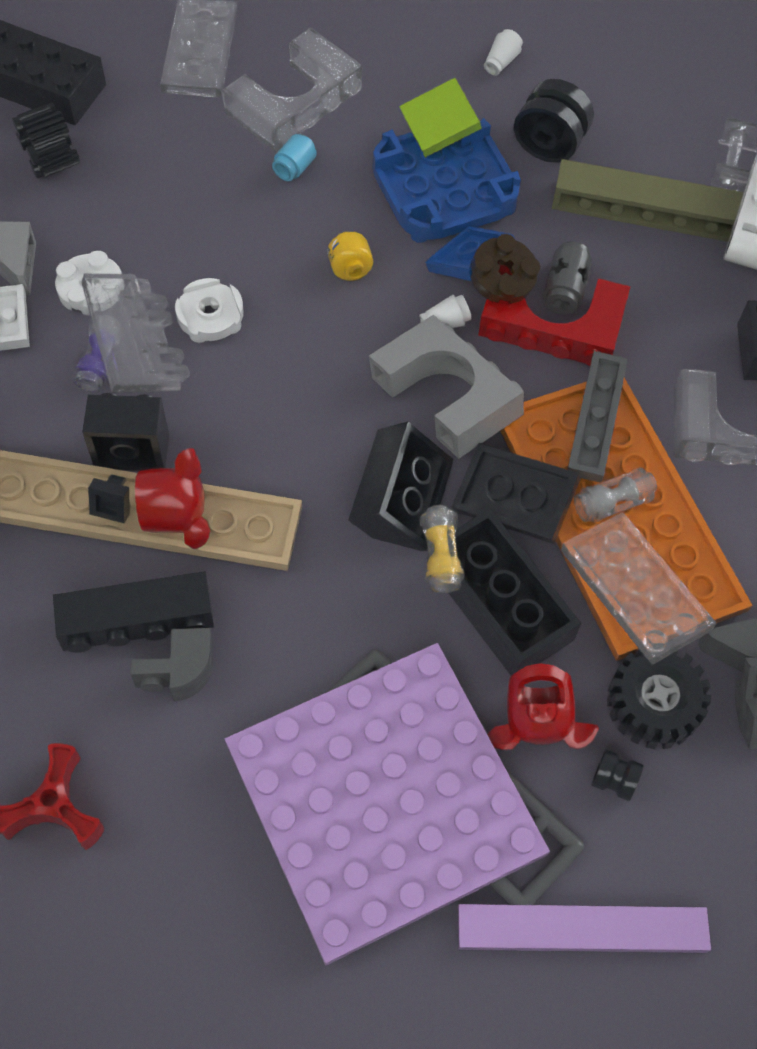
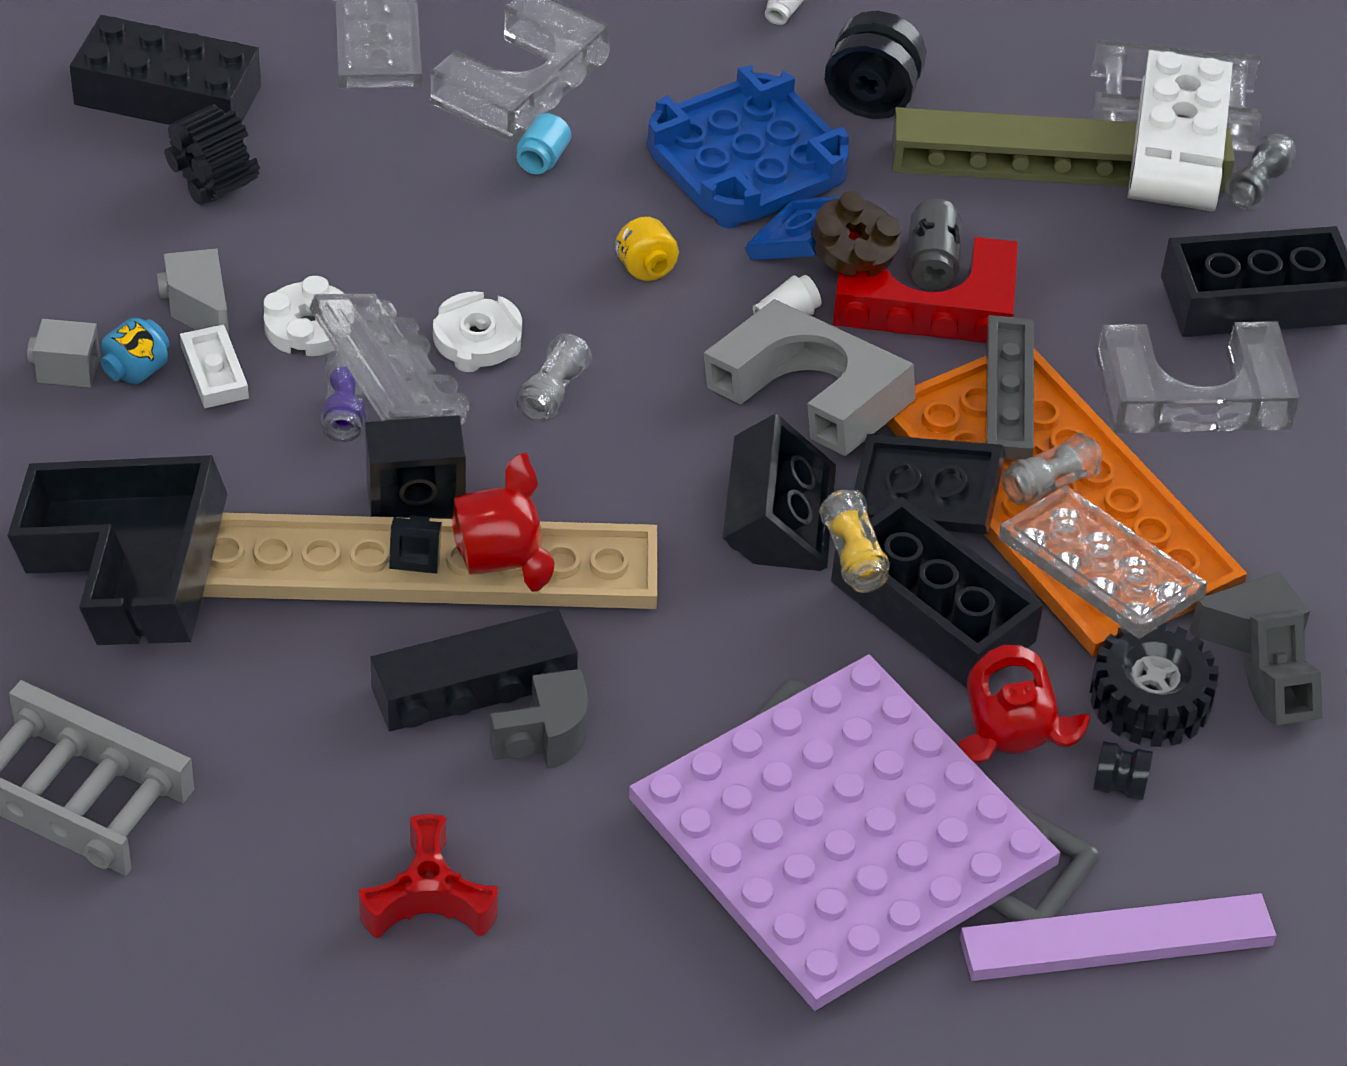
camera: 10 degrees left, 15 degrees down
(245, 370) = (543, 393): none -> clear piece
(440, 117) = (727, 74): lime tile -> none

